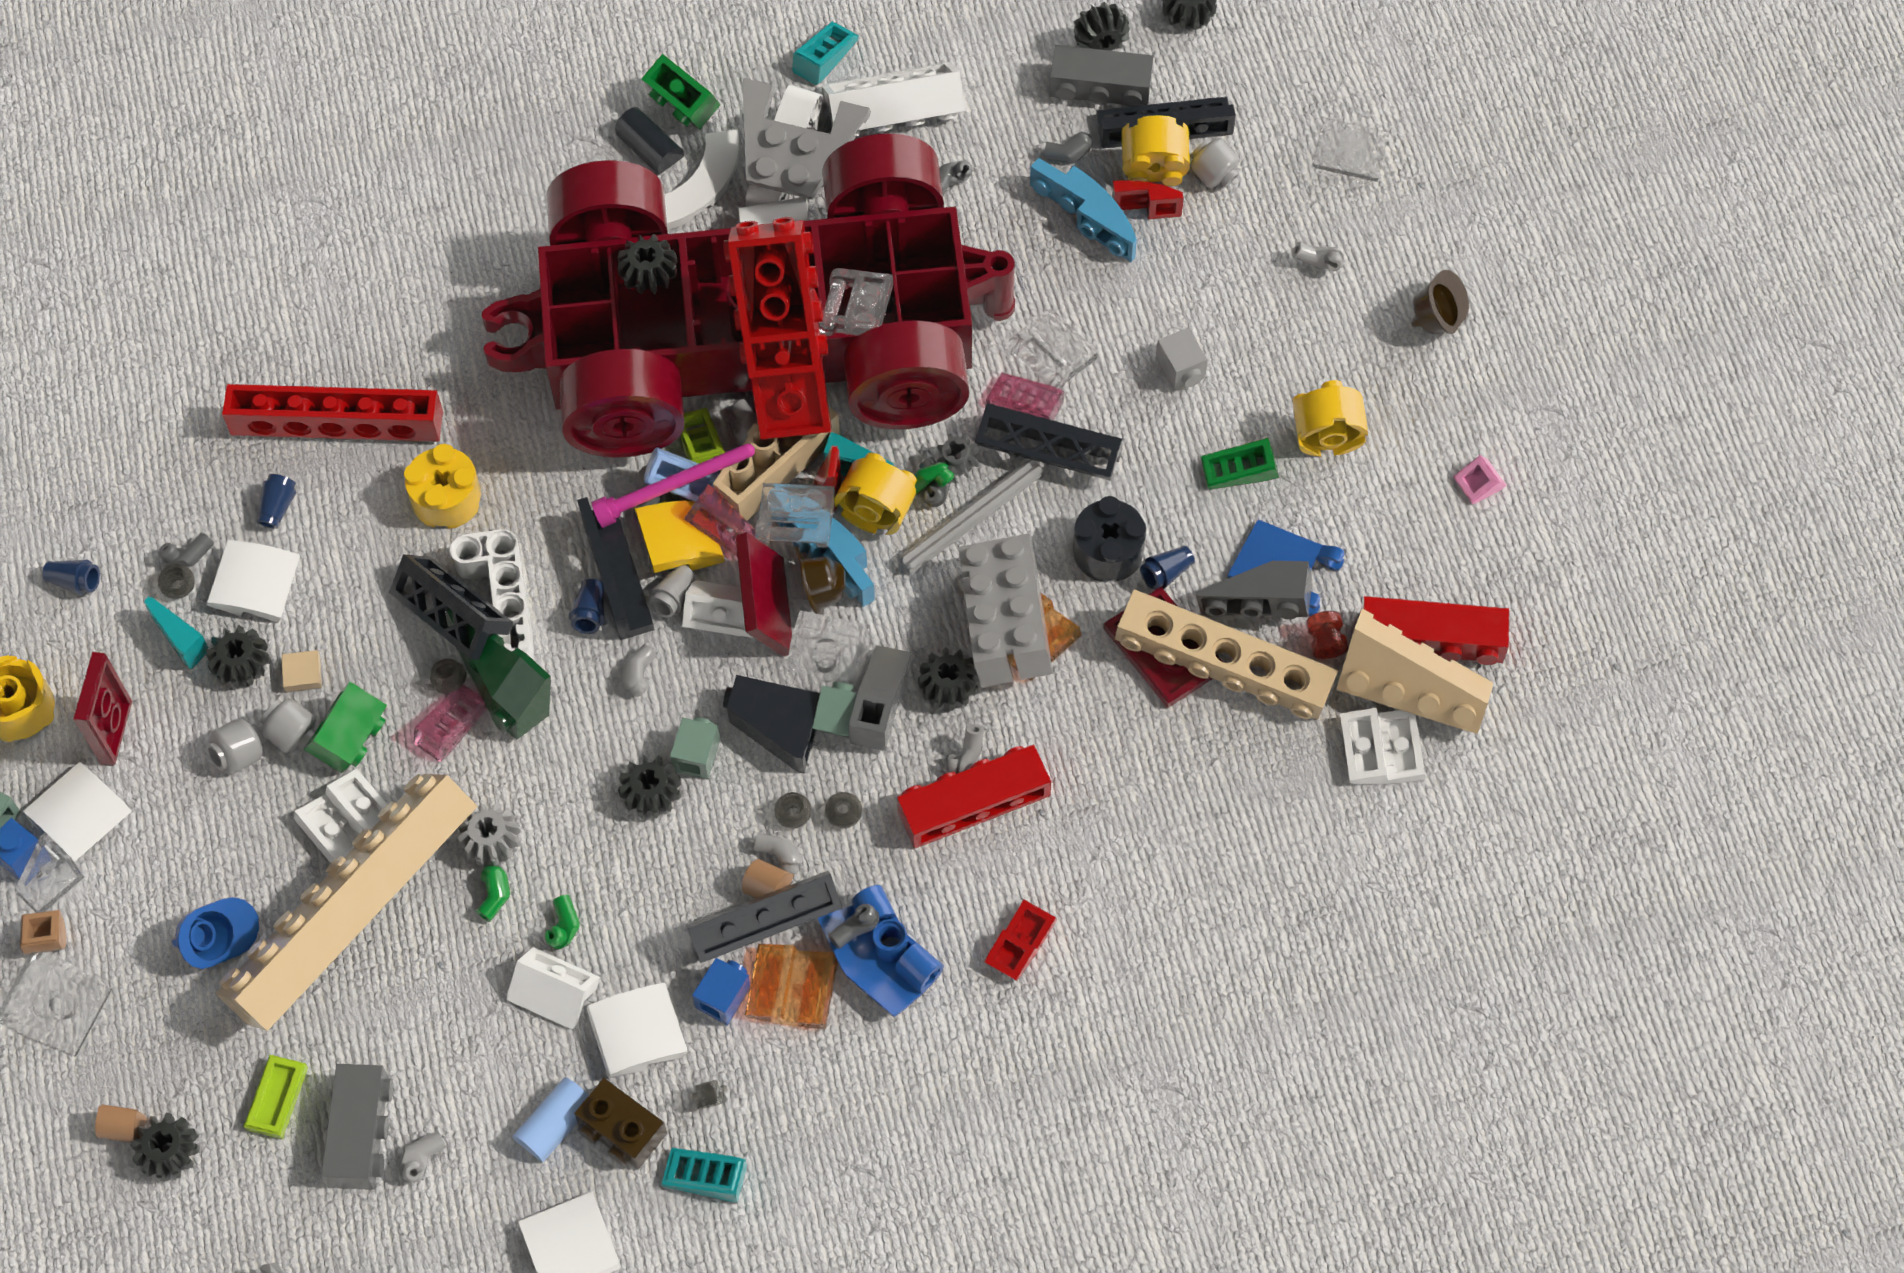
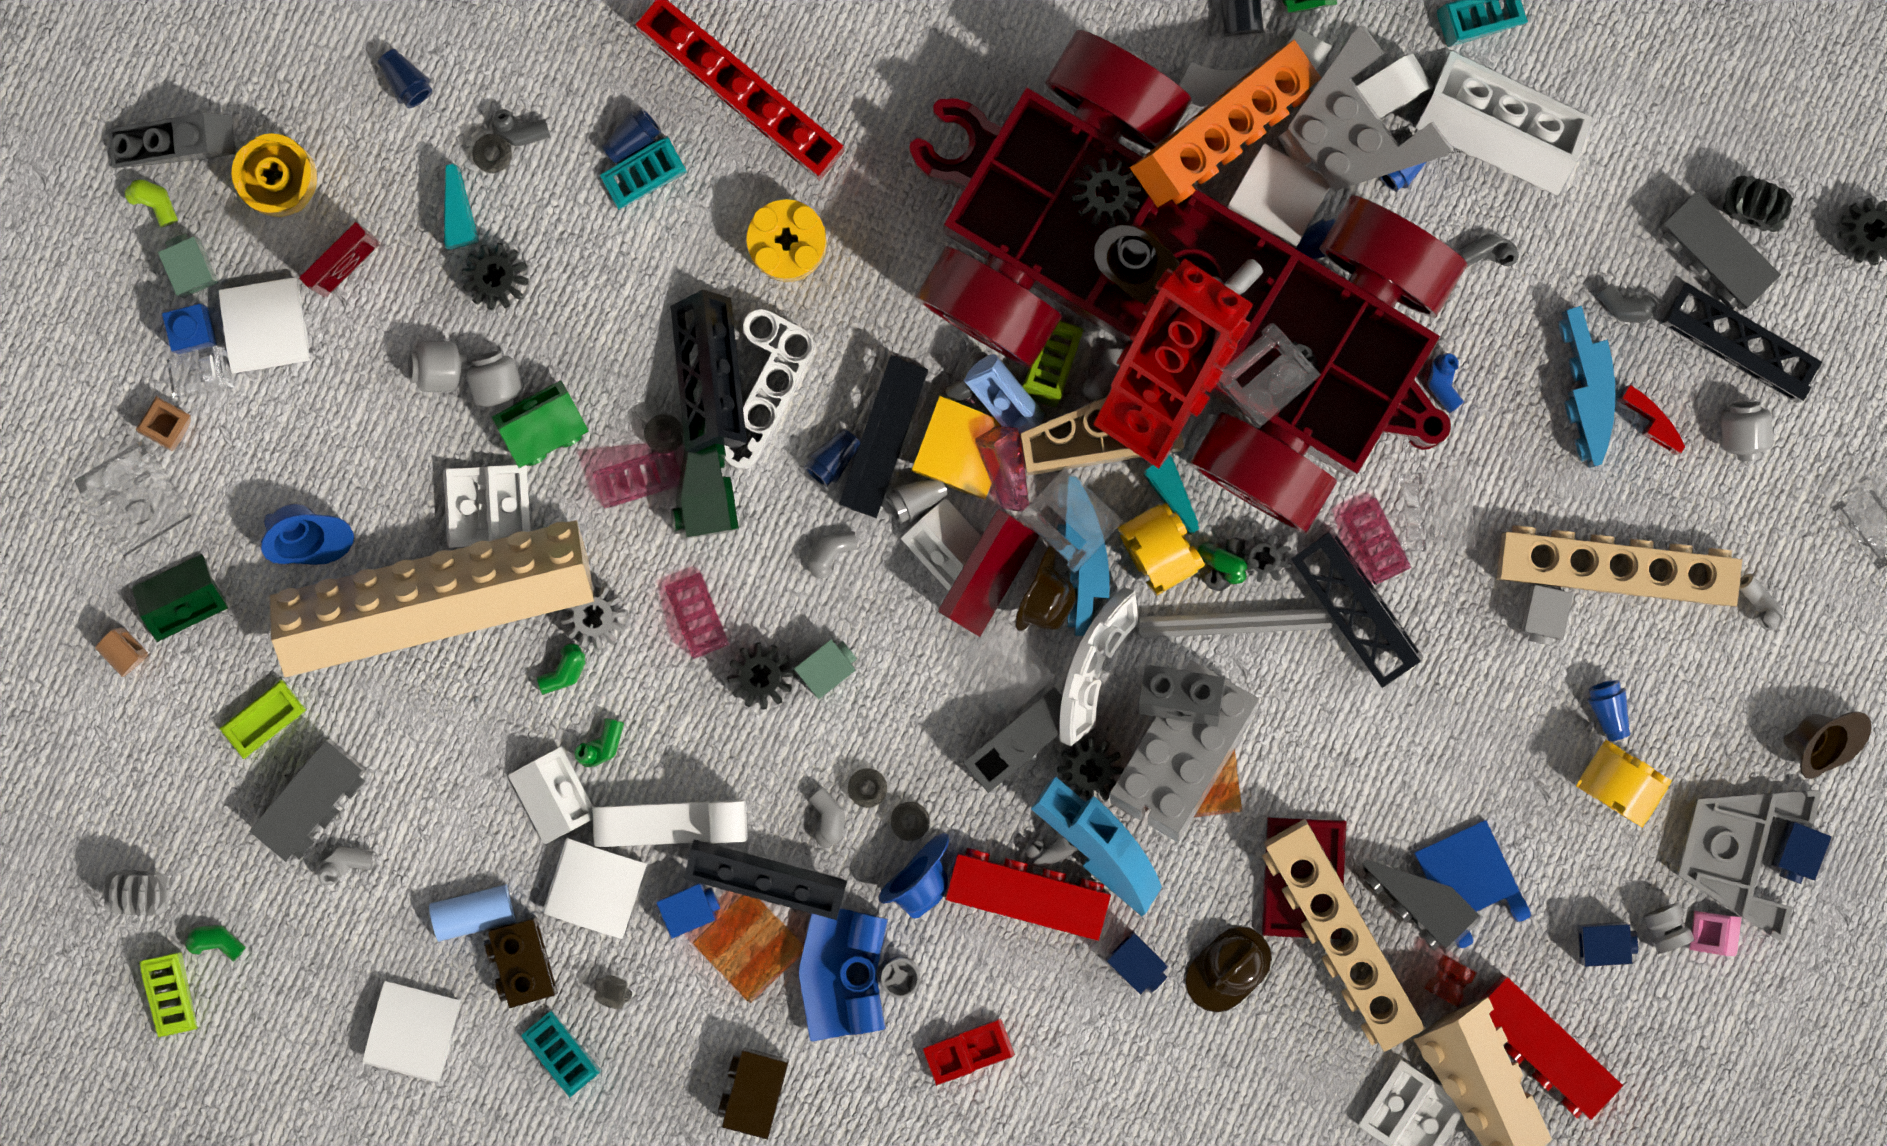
camera: 35 degrees right, 25 degrees up
(144, 1053) = (178, 598): none -> dark green panel
(149, 1147) = (134, 710): pearl dark grey gear -> none
(253, 580) = (559, 204): white slope -> none
(300, 499) = (636, 160): none -> teal slope
(301, 671) = (542, 328): tan tile -> none
(591, 800) = (708, 646): none -> clear pink slope
(609, 509) = (915, 380): dark pink piece -> none
(661, 935) = (670, 823): none -> white beam
(699, 186) = (1225, 124): none -> orange brick
(700, 285) = (1133, 259): none -> dark brown piece
(764, 878) = (795, 841): medium nougat brick -> none
(774, 717) = (914, 692): black slope -> none
(830, 471) = (1127, 496): red slope -> none
(835, 709) = (970, 730): sand green brick -> none
(861, 922) = (840, 943): dark grey arm -> none
(879, 1083) = (754, 1092): none -> dark brown brick
(884, 585) = (1100, 641): none -> white tile
(886, 841) = (921, 881): none -> blue piece
(927, 913) = (901, 983): none -> light grey wheel
(970, 557) = (1181, 695): none -> dark grey brick
(1013, 716) = (1110, 848): none -> dark azure slope
(1094, 784) = (1138, 964): none -> dark blue brick
(1109, 540) = (1319, 764): black brick -> none
(1156, 150) = (1697, 381): yellow brick -> none
(1164, 747) = (1228, 969): none -> dark brown piece
(1166, 567) = (1365, 807): dark blue cone -> none
(1226, 299) = (1719, 588): none -> tan brick
(1249, 451) = (1541, 775): green slope -> none
(1277, 387) = (1611, 709): none -> blue cone
(1412, 534) = (1606, 944): none -> dark blue brick
(1439, 420) = (1727, 849): none -> light grey wing
(1445, 494) = (1666, 919): none -> light grey wheel
(1488, 384) = (1800, 852): none -> dark blue brick

